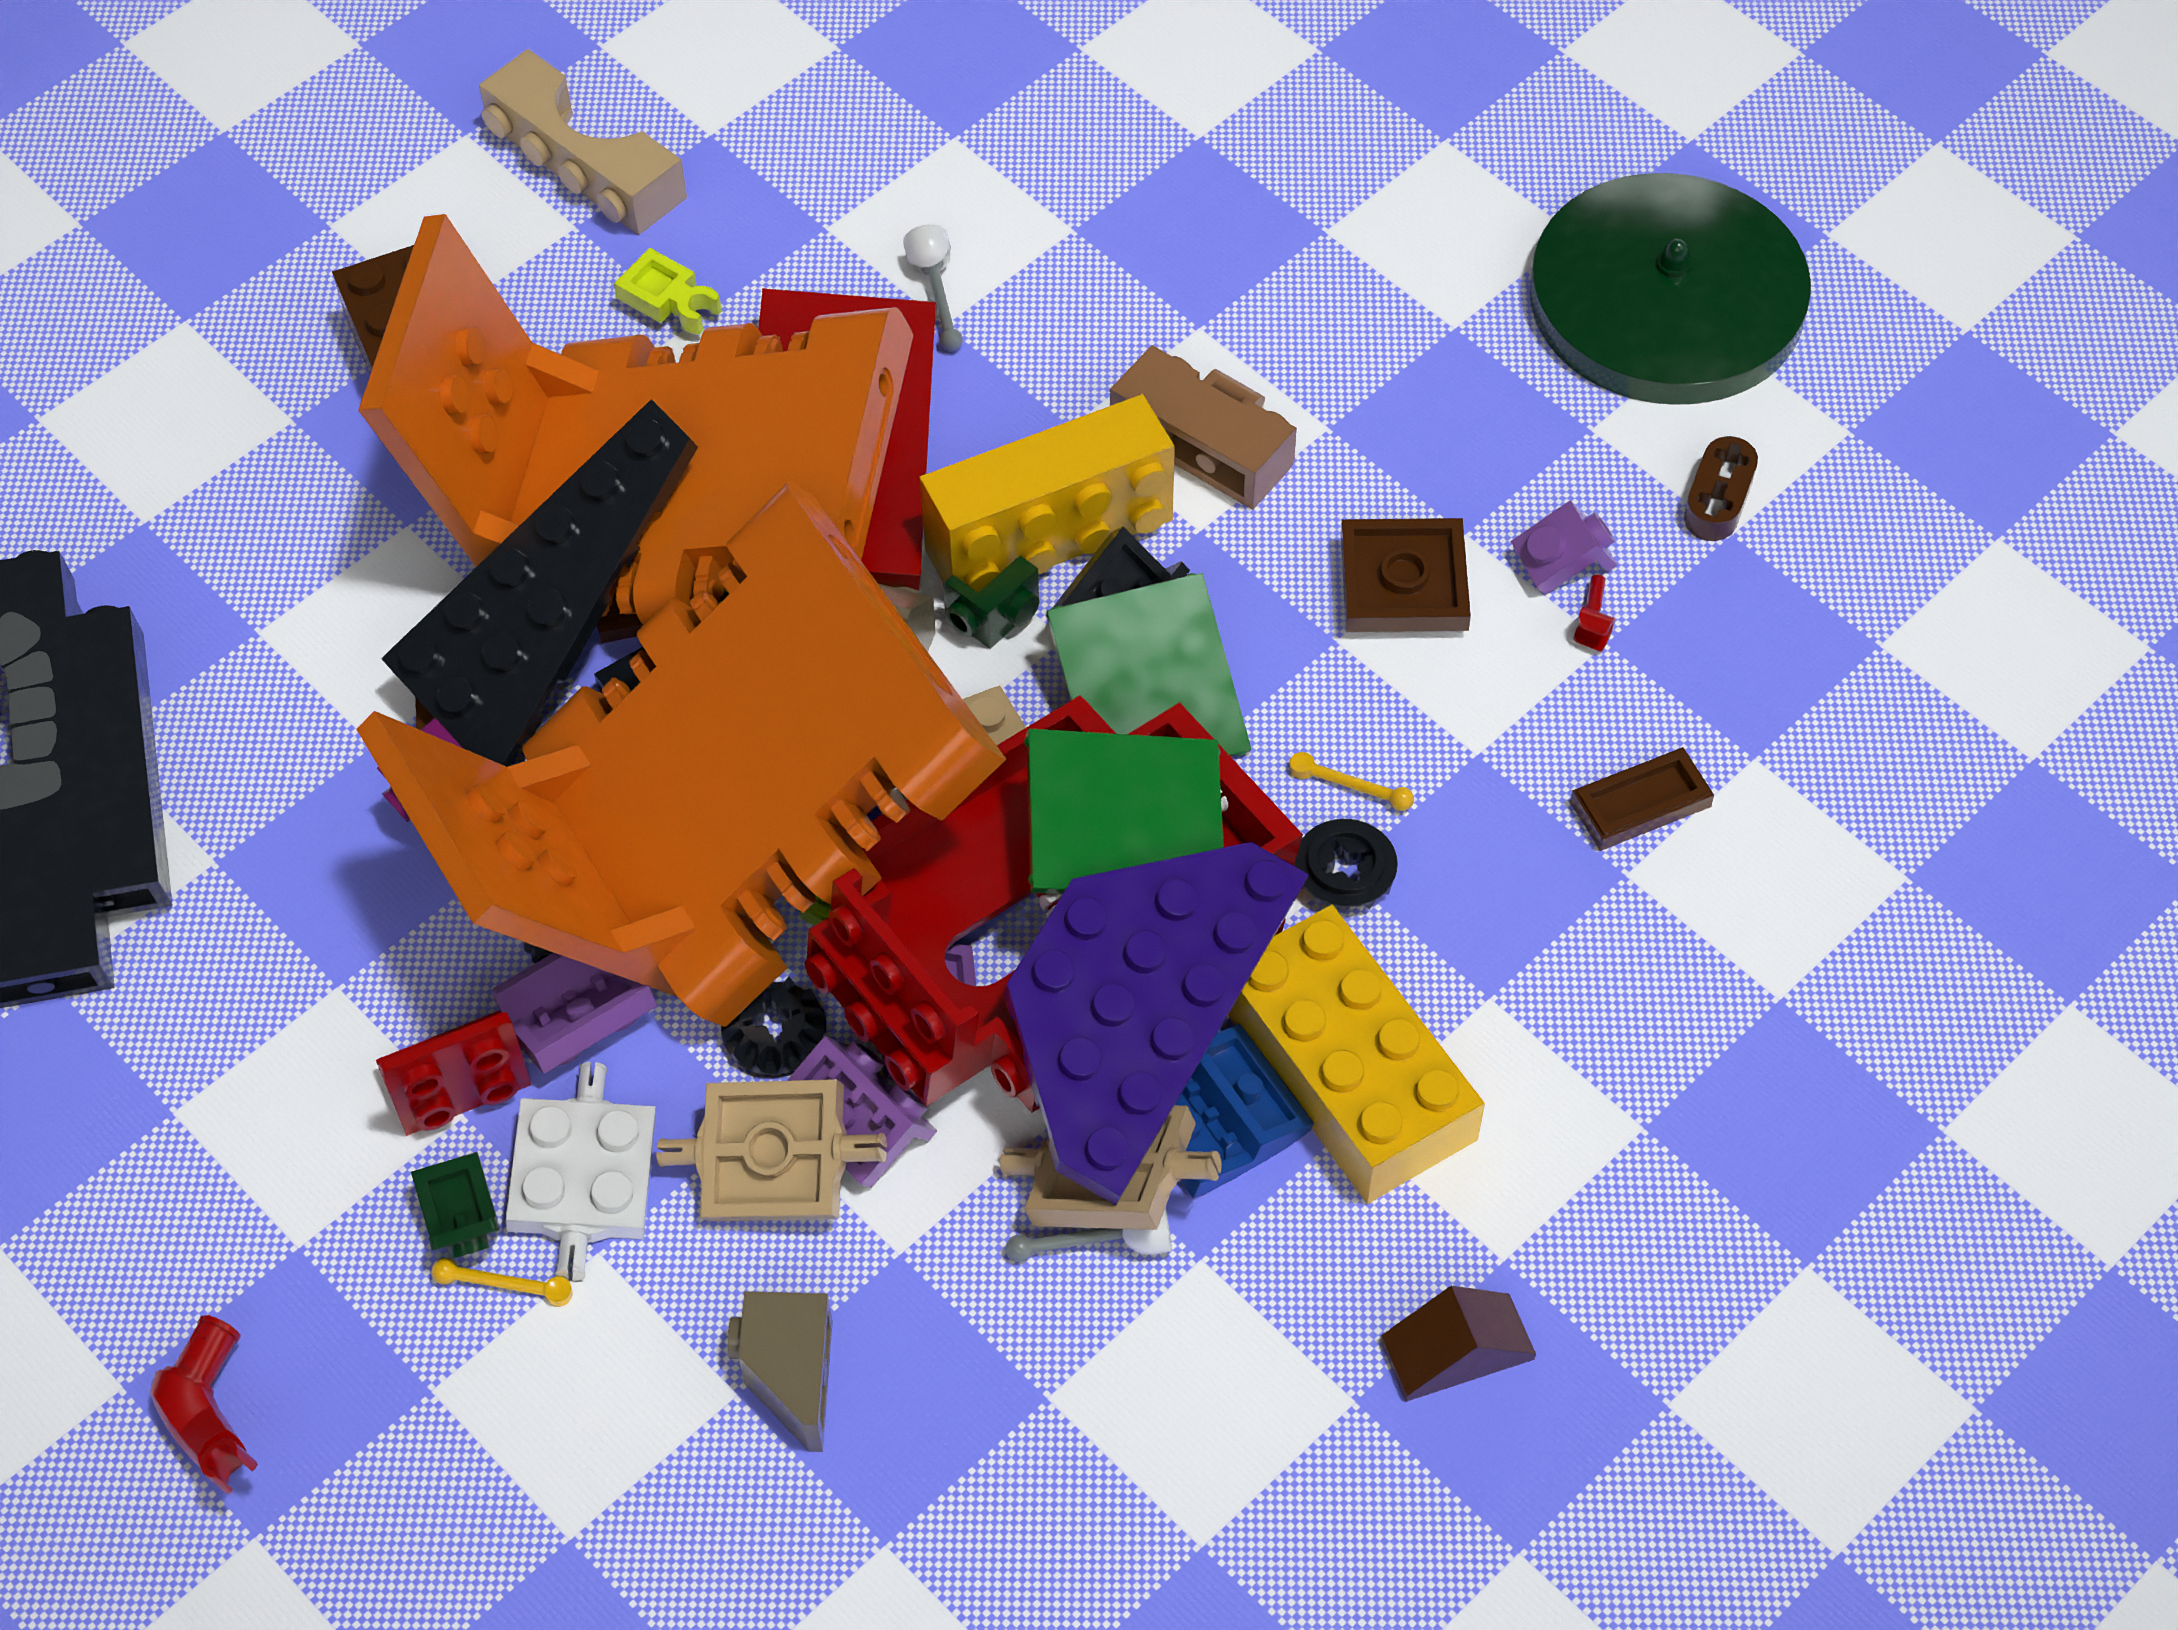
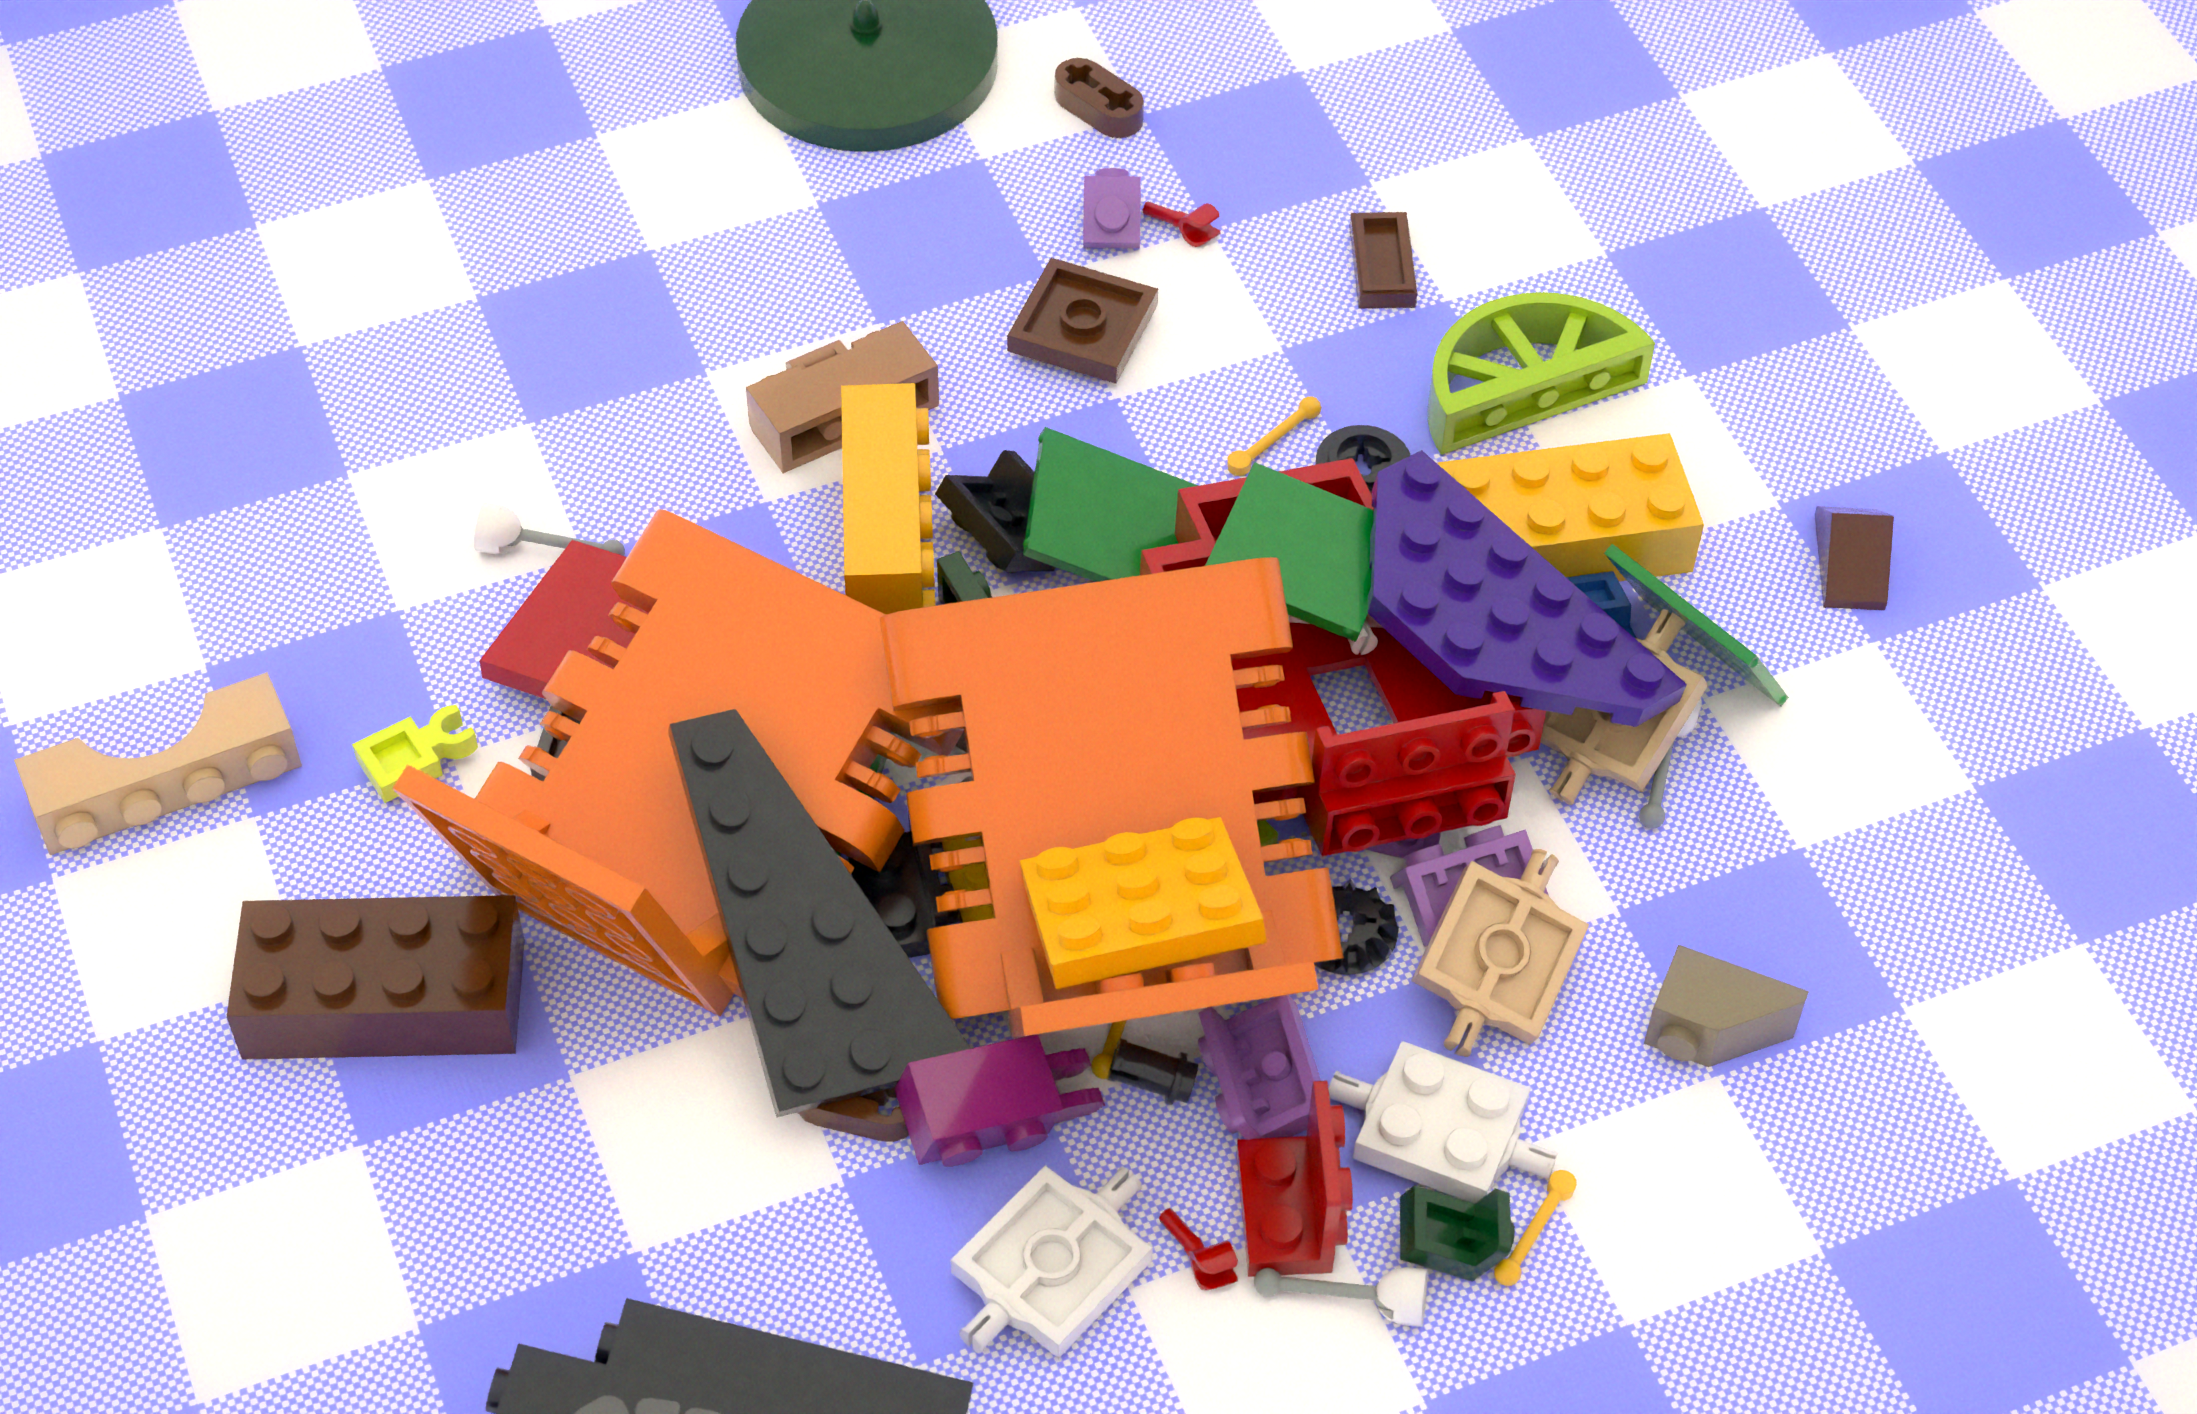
camera: 70 degrees left, 5 degrees down
(328, 912) = (1051, 1260): none -> white plate
(370, 1030) = (1211, 1264): none -> red hand
(383, 1189) = (1398, 1293): none -> hinge
(599, 797) = (1141, 901): none -> yellow plate
(1230, 1199) = (1698, 625): none -> green piece
(1517, 983) = (1609, 359): none -> lime window

